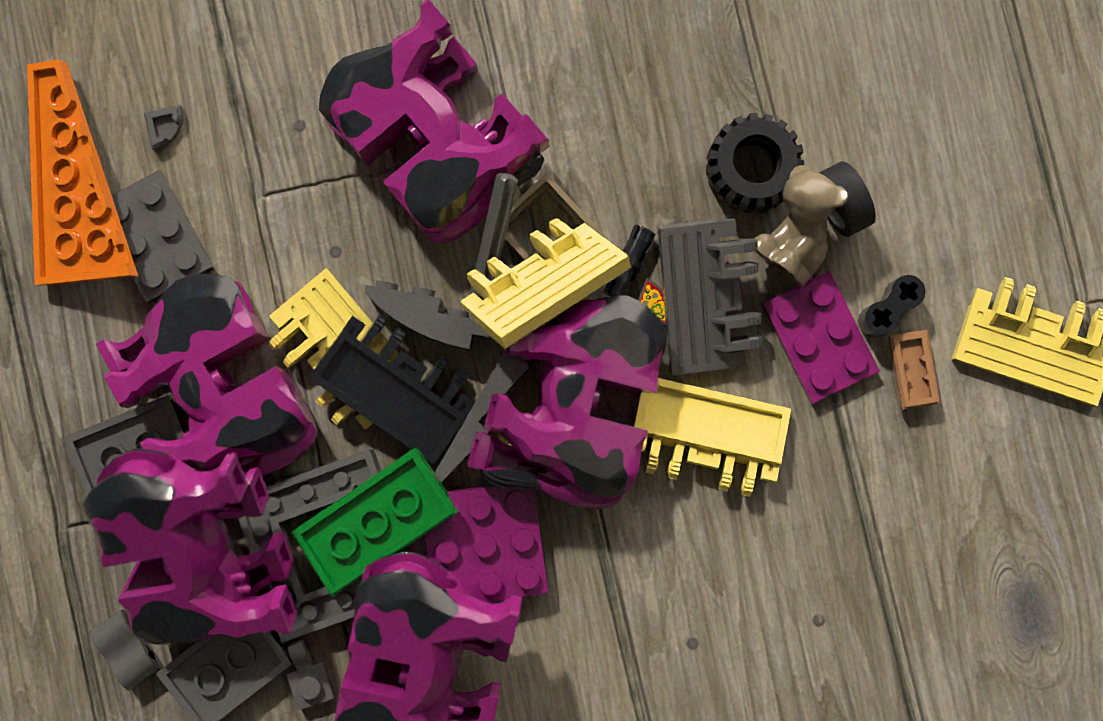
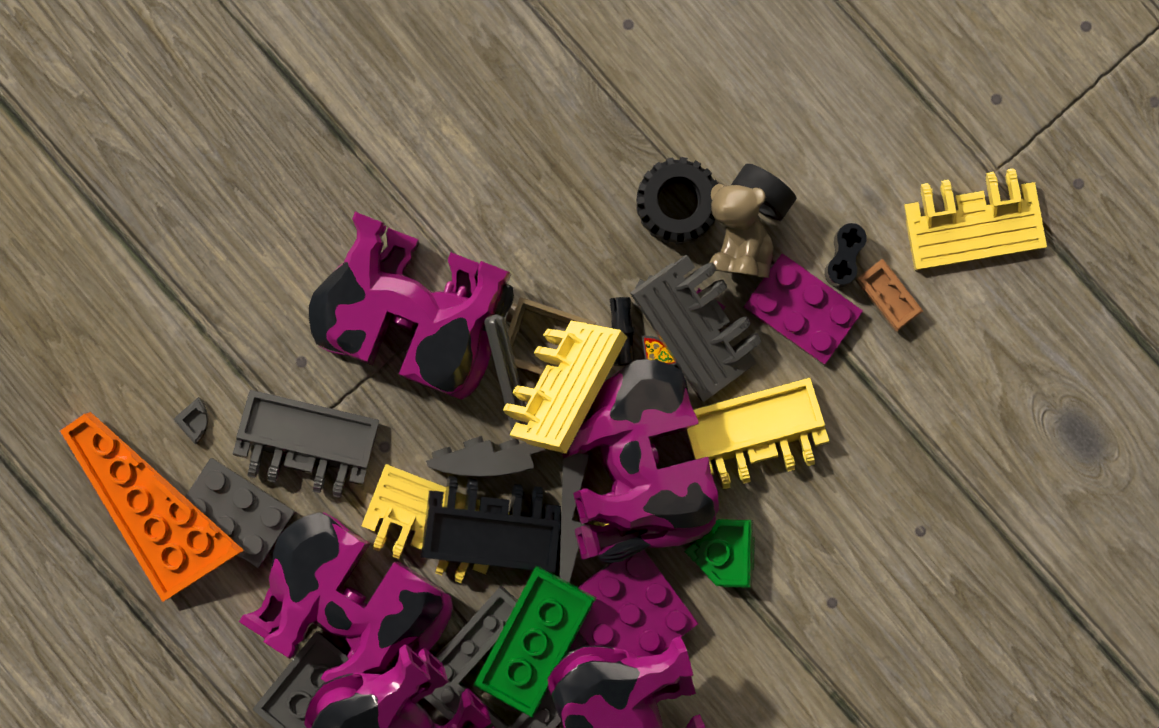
camera: 30 degrees left, 0 degrees up
(262, 195) = (306, 435): none -> dark grey hinge
(614, 537) = (726, 553): none -> green plate

